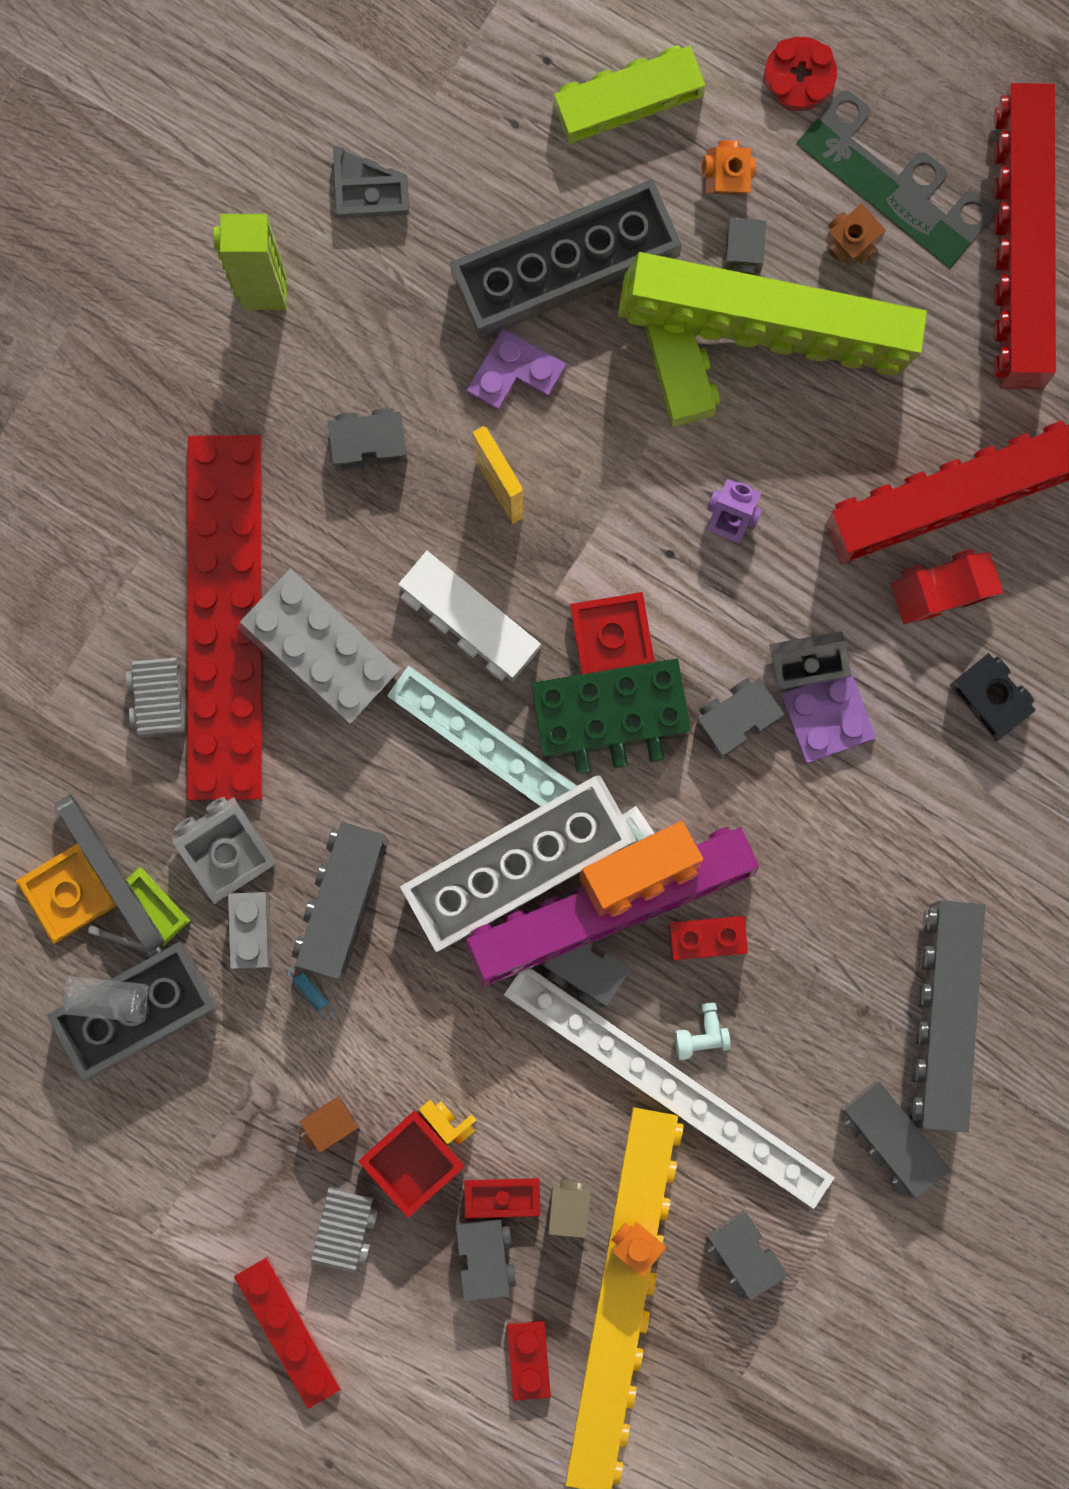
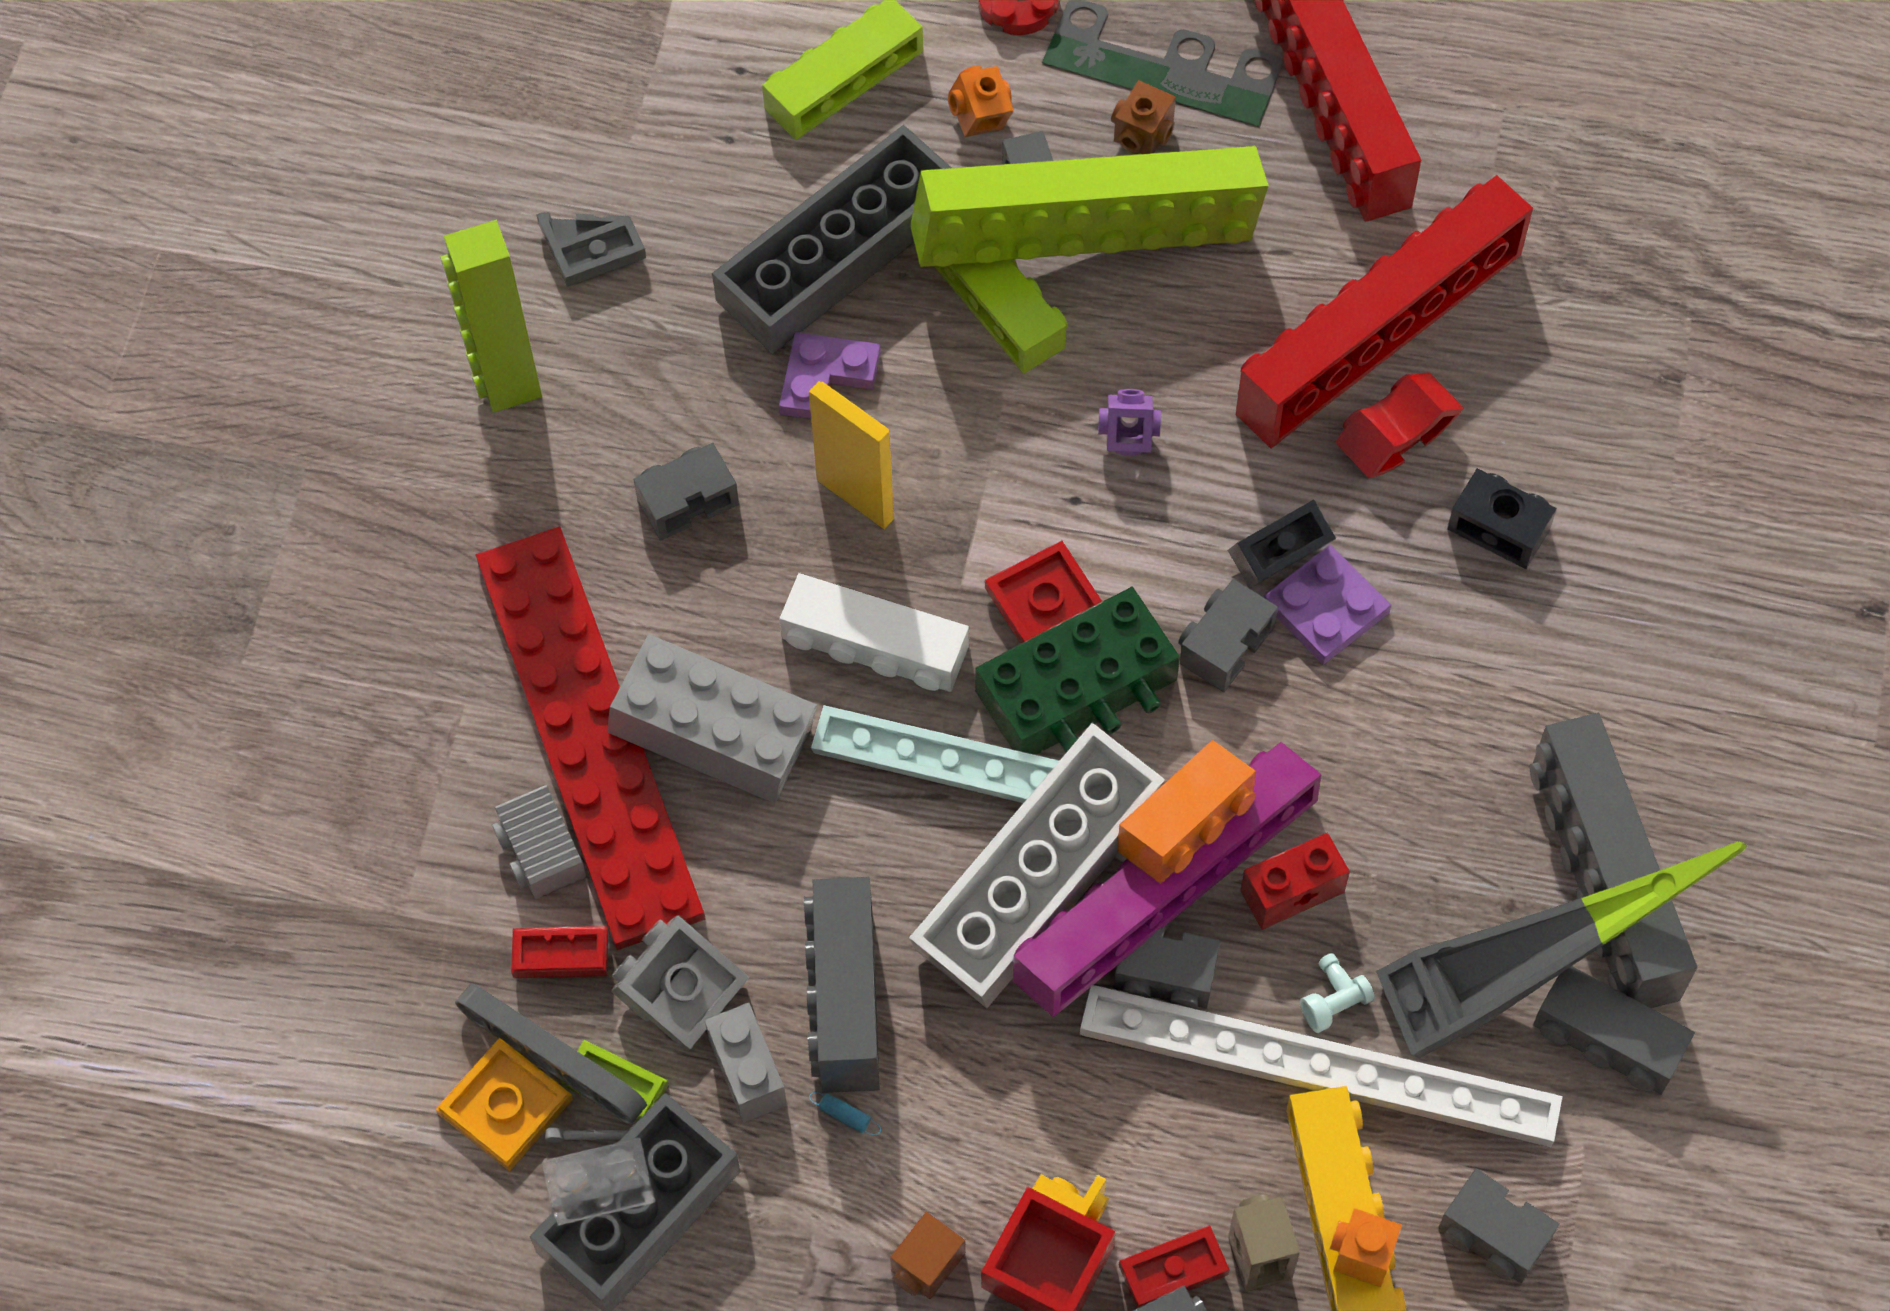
camera: 20 degrees left, 20 degrees down
(144, 791) = (560, 952): none -> red plate
(806, 1068) = (1473, 978): none -> dark grey plate

